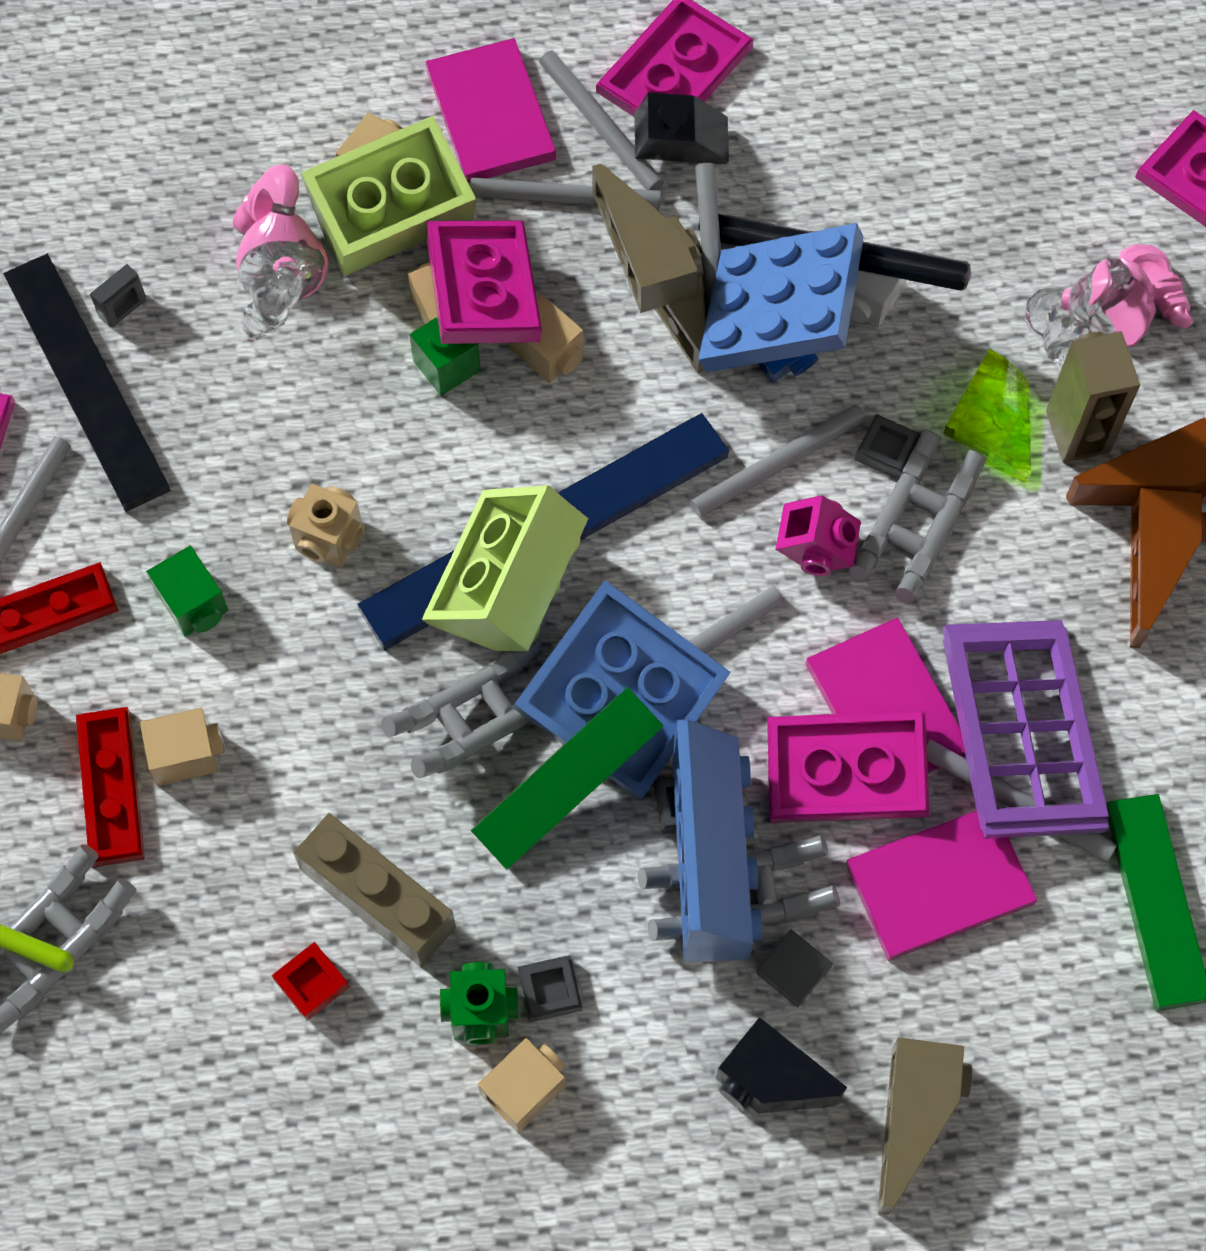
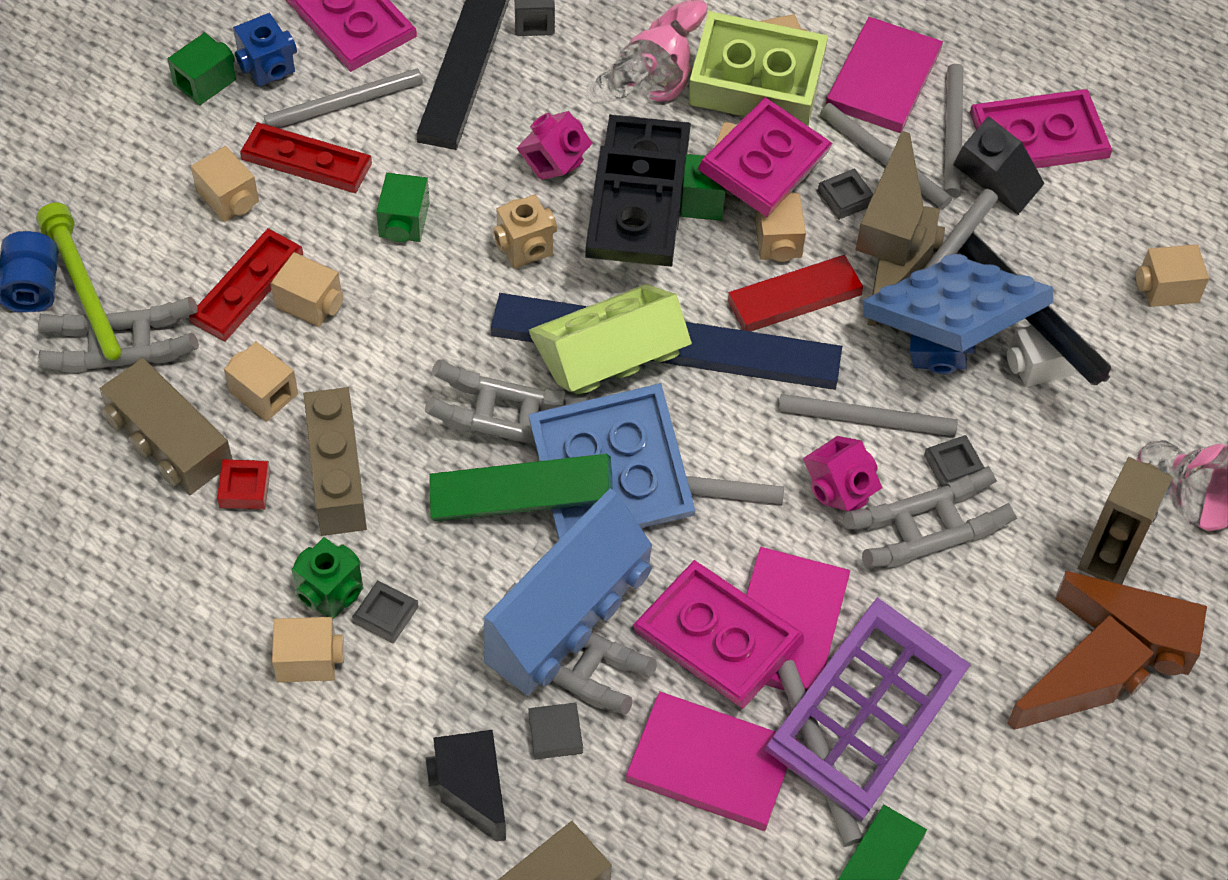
camera: 40 degrees right, 10 degrees down
(183, 990) = (164, 426): none -> dark tan brick
(226, 871) = (260, 381): none -> tan brick
(271, 417) = (554, 145): none -> dark pink brick
(398, 403) = (639, 186): none -> black bracket
(567, 258) = (846, 193): none -> dark grey tile
(612, 393) = (795, 293): none -> red tile
(910, 126) = (1172, 275): none -> tan brick
(996, 416) = (1052, 497): clear neon green slope -> none

